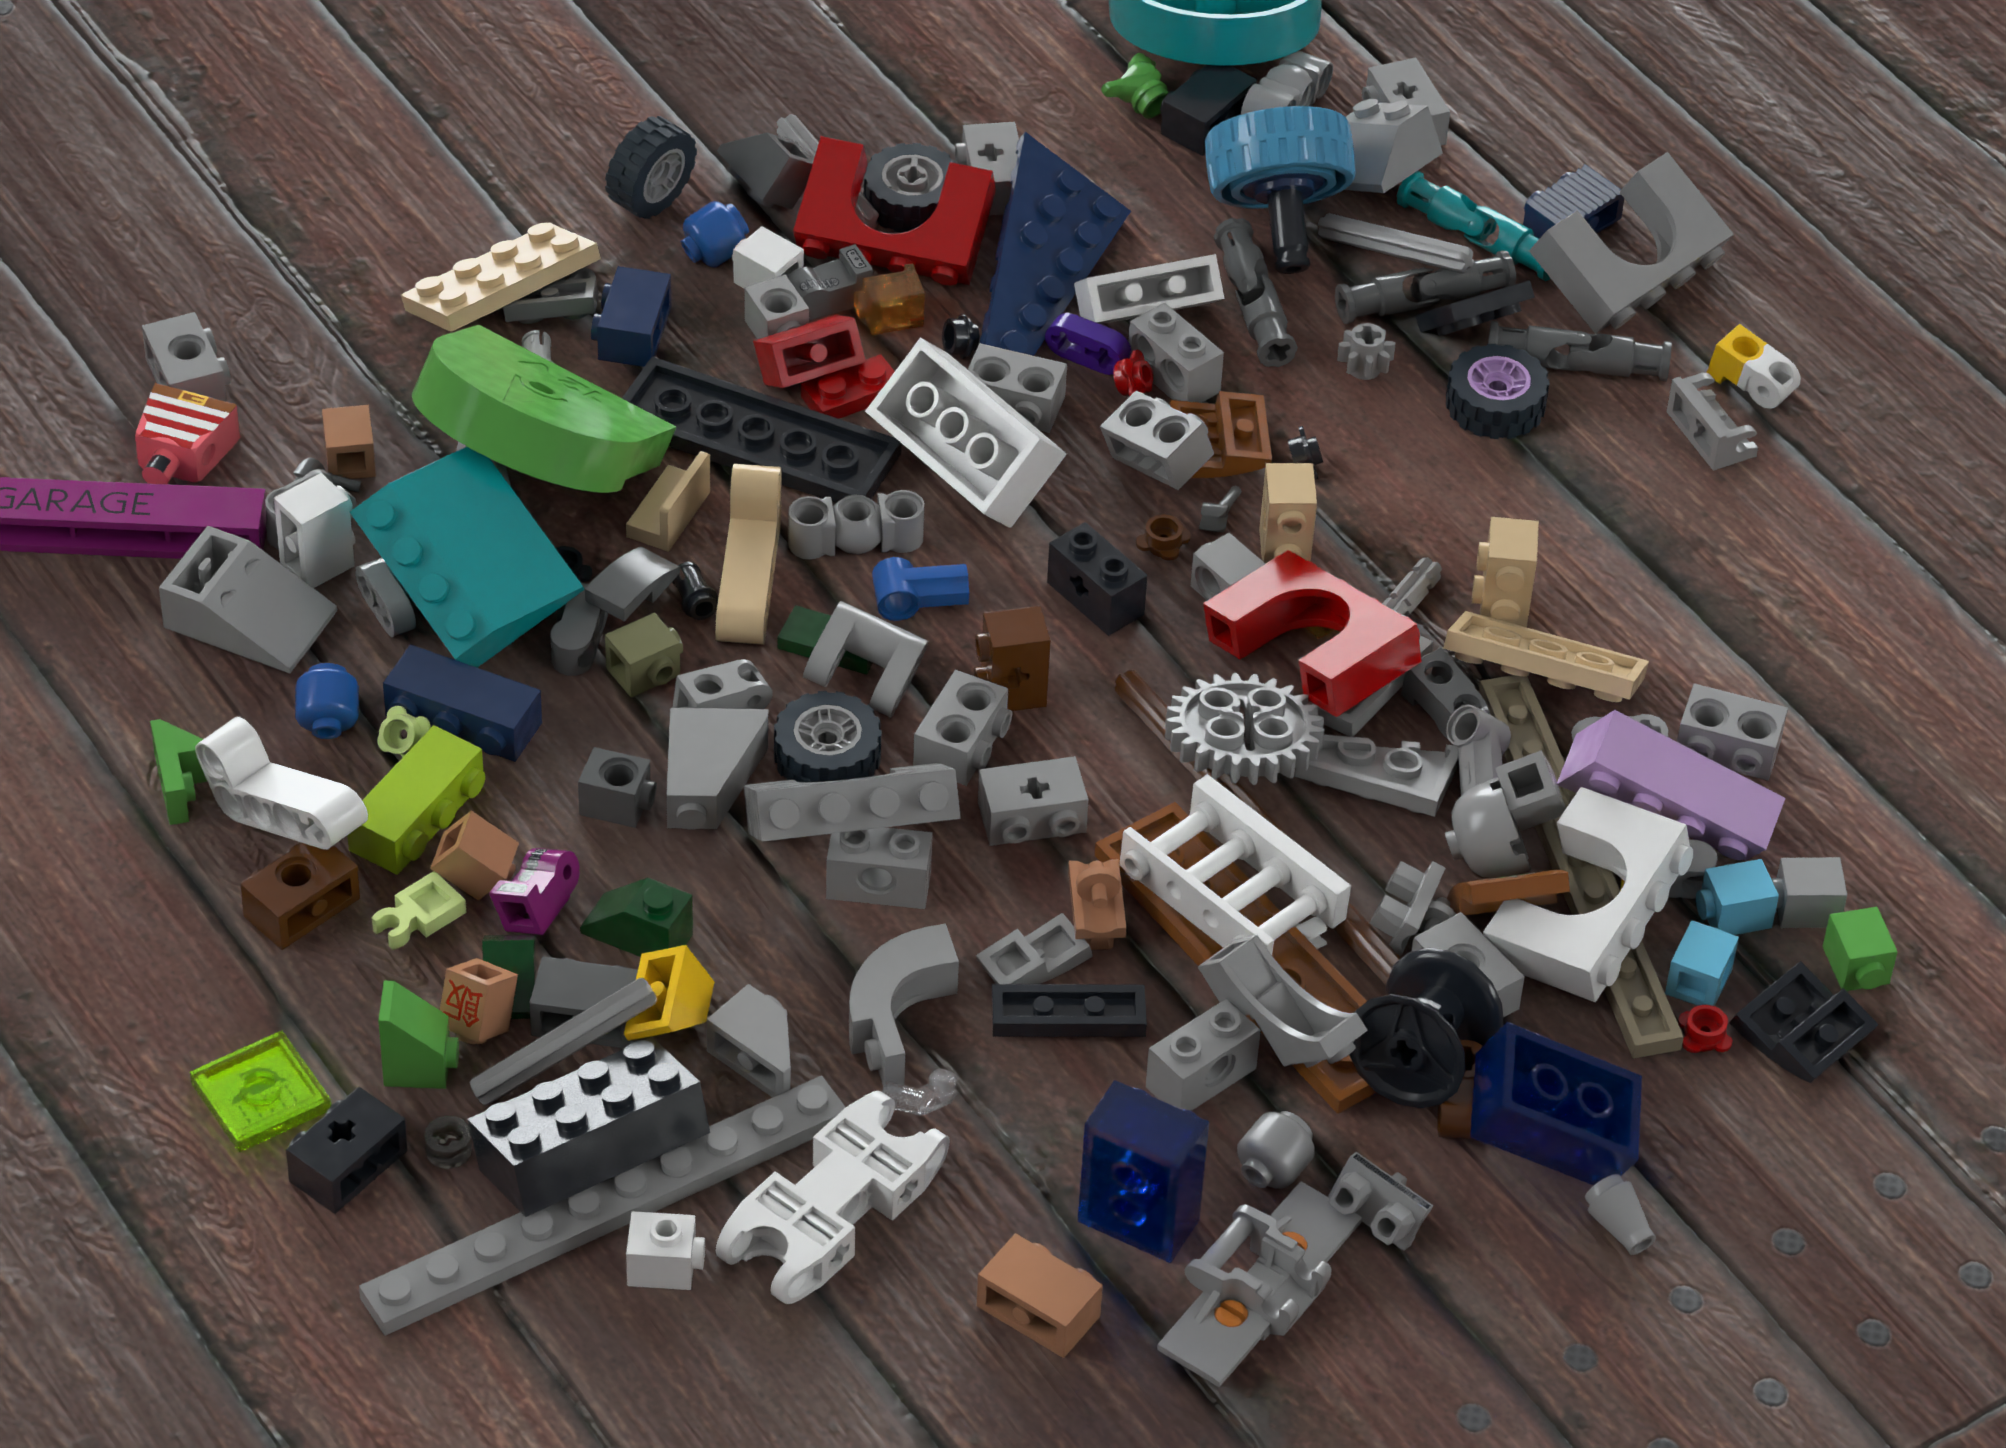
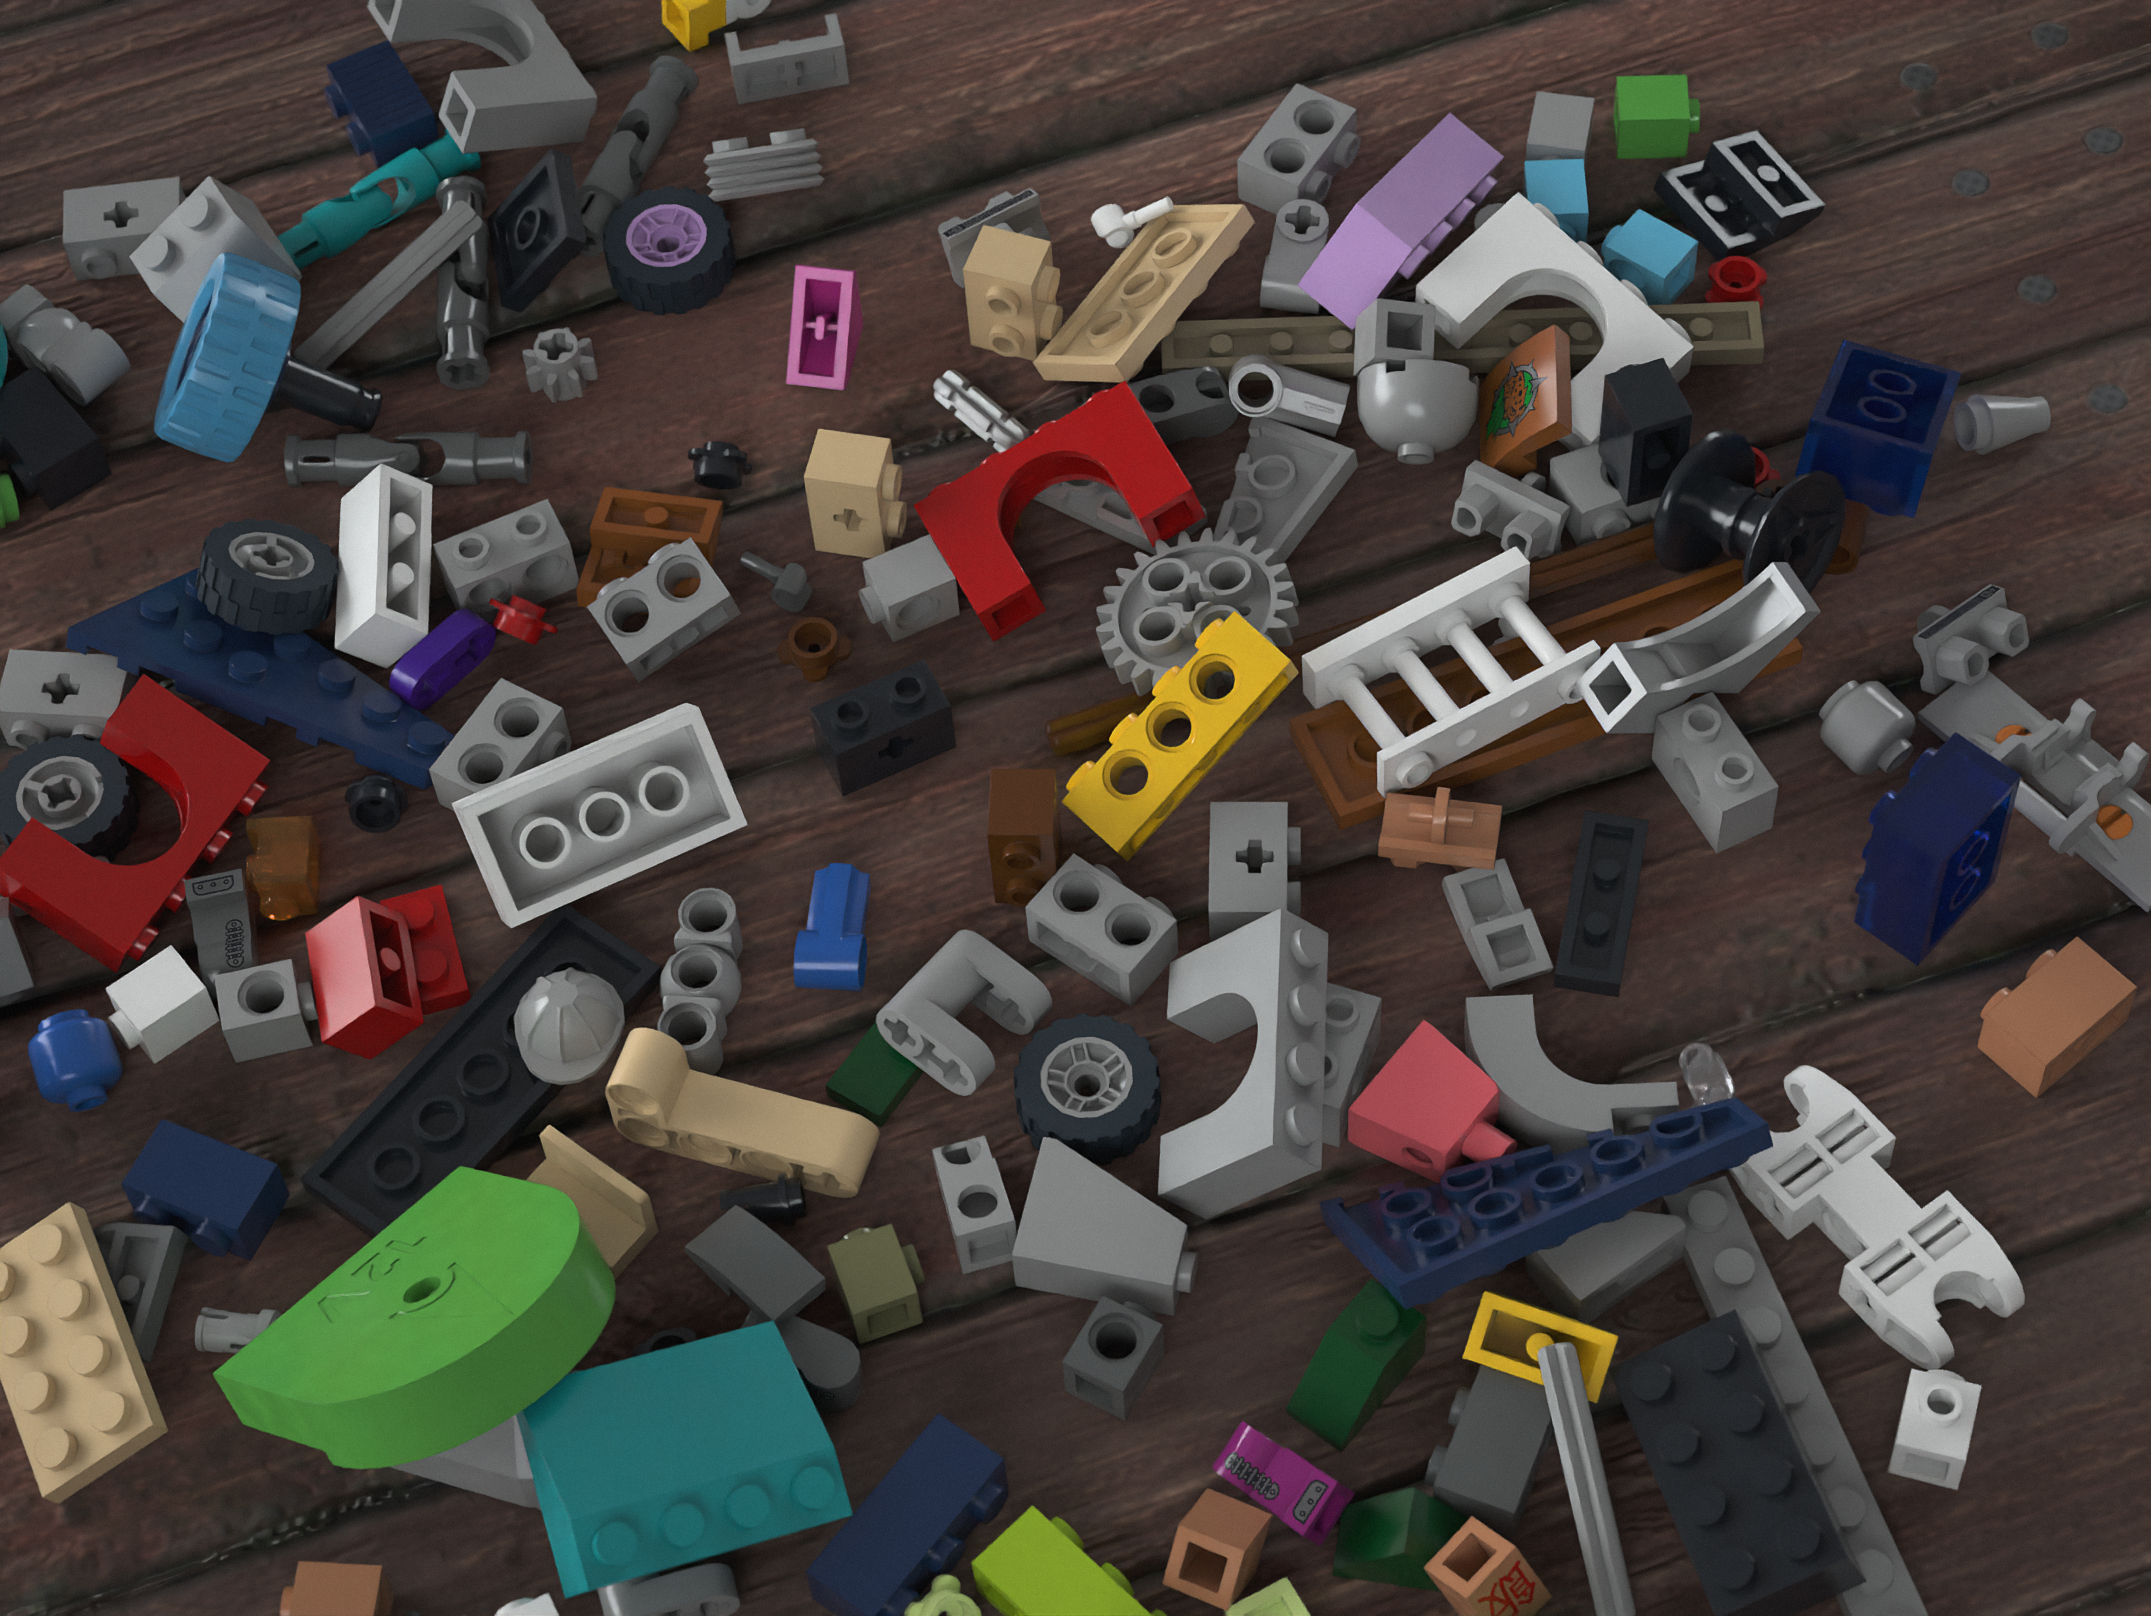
camera: 70 degrees left, 10 degrees up
(781, 974) = (1534, 1200): none -> dark blue wing
(806, 457) = (568, 1026): none -> light grey piece
(854, 923) = (1429, 1109): none -> coral torso
(1117, 229) = (267, 576): none -> black wheel
(1120, 723) = (1216, 726): none -> yellow brick
(1450, 486) = (823, 327): none -> dark pink slope
(1477, 924) = (1643, 429): none -> black brick
(1577, 568) = (1007, 212): none -> light grey hips
(1580, 414) = (774, 168): none -> light grey brick
(1624, 639) = (1118, 228): none -> white hand

